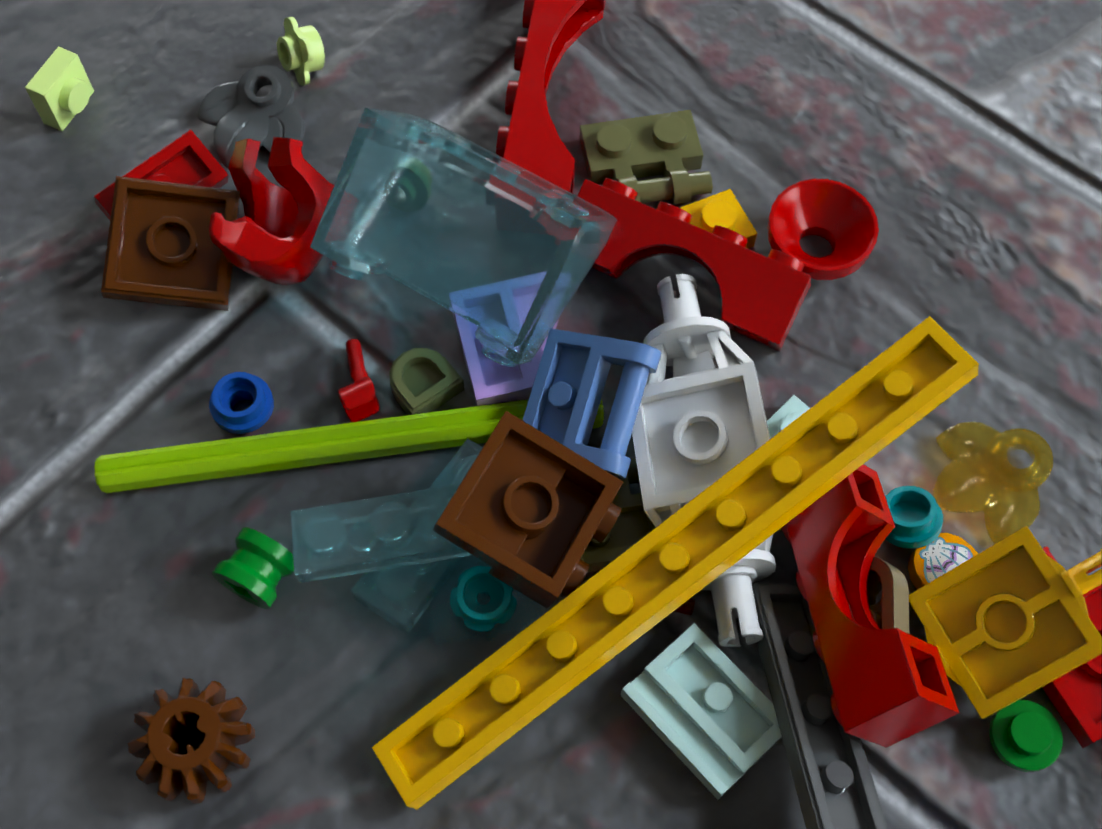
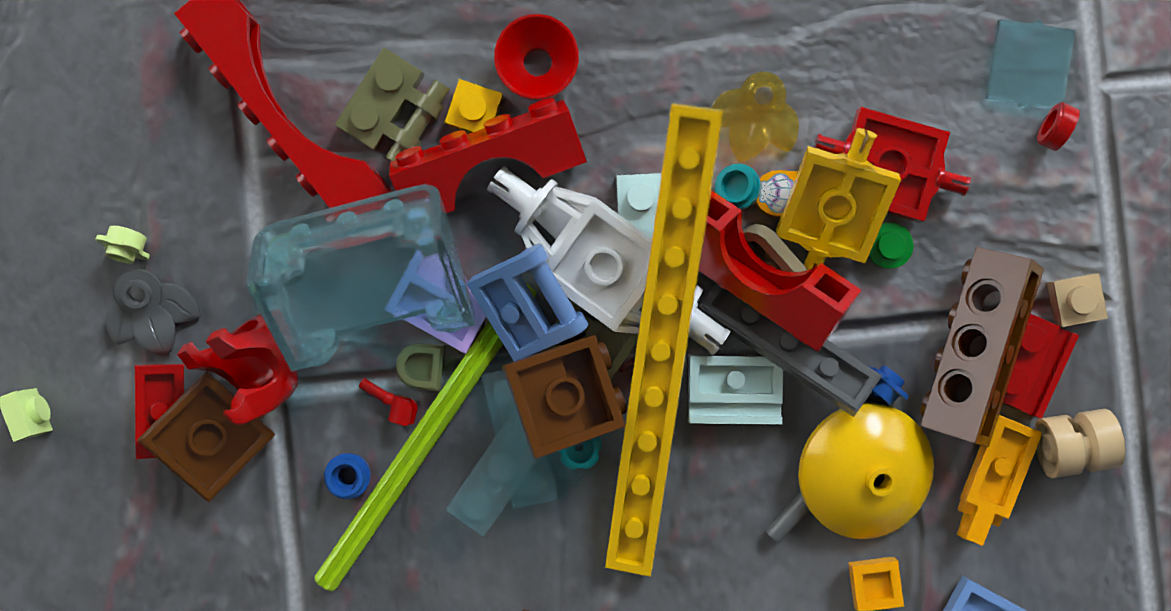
camera: 45 degrees left, 25 degrees up
(255, 568) = (457, 549): green wheel -> none

